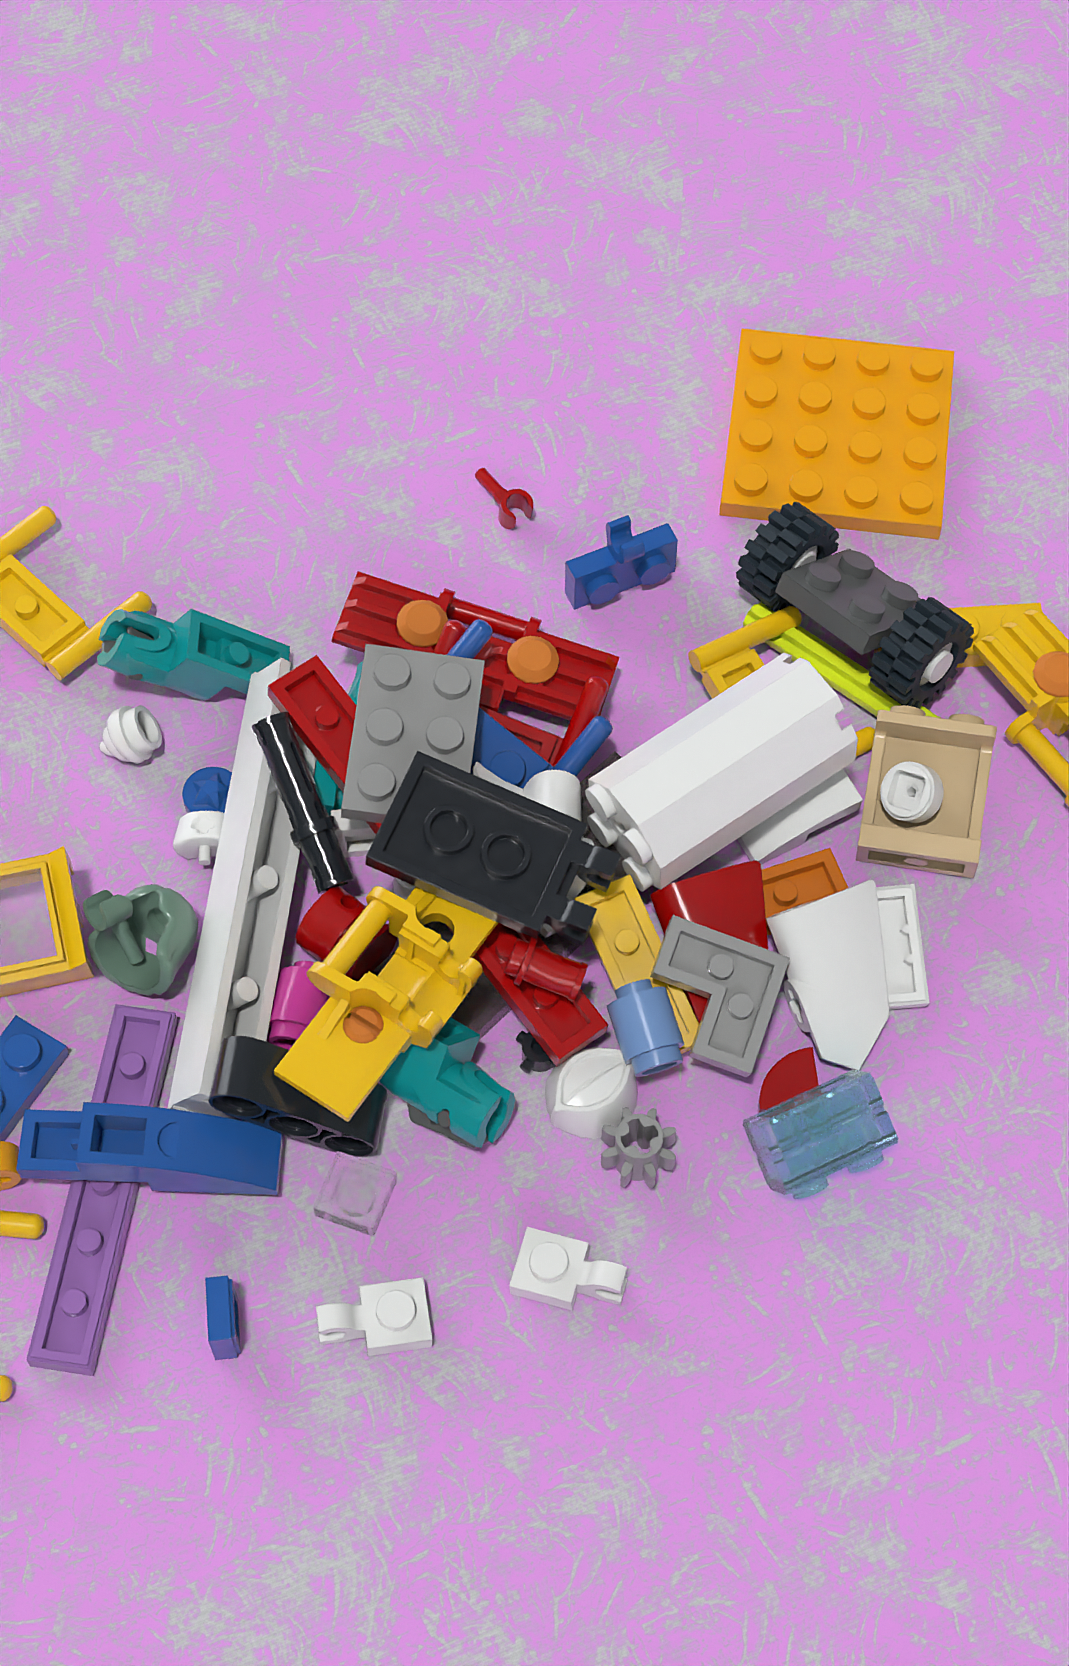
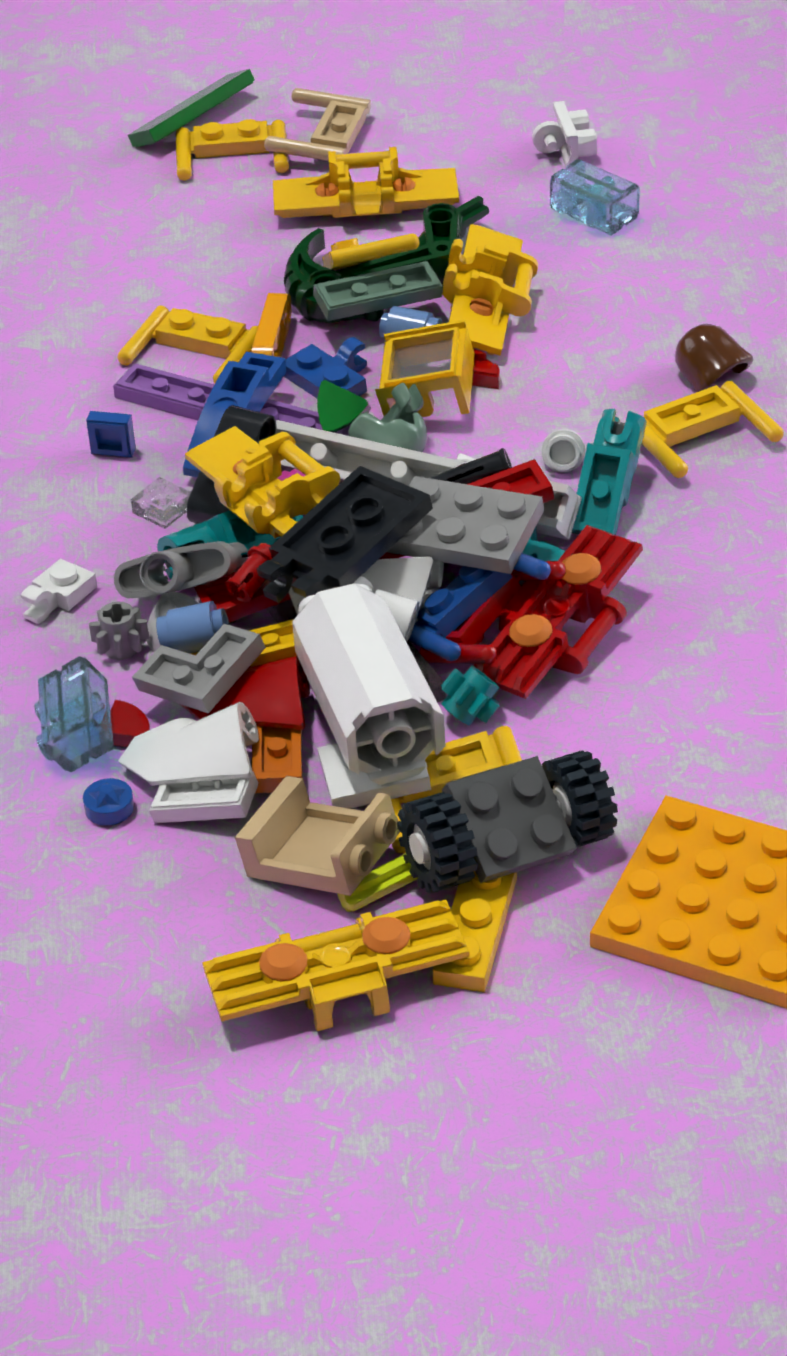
camera: 110 degrees right, 20 degrees down
(108, 1005) = (338, 406): none -> green tile
(390, 1318) = (75, 510): white plate -> none
(506, 499) = (707, 678): red hand -> none
(559, 1081) = (190, 564): none -> light grey connector
(621, 564) = (611, 703): blue plate -> none
(637, 710) = (470, 695): none -> teal gear
(911, 792) = (321, 823): white tile -> none
(923, 1060) = (108, 801): none -> blue tile

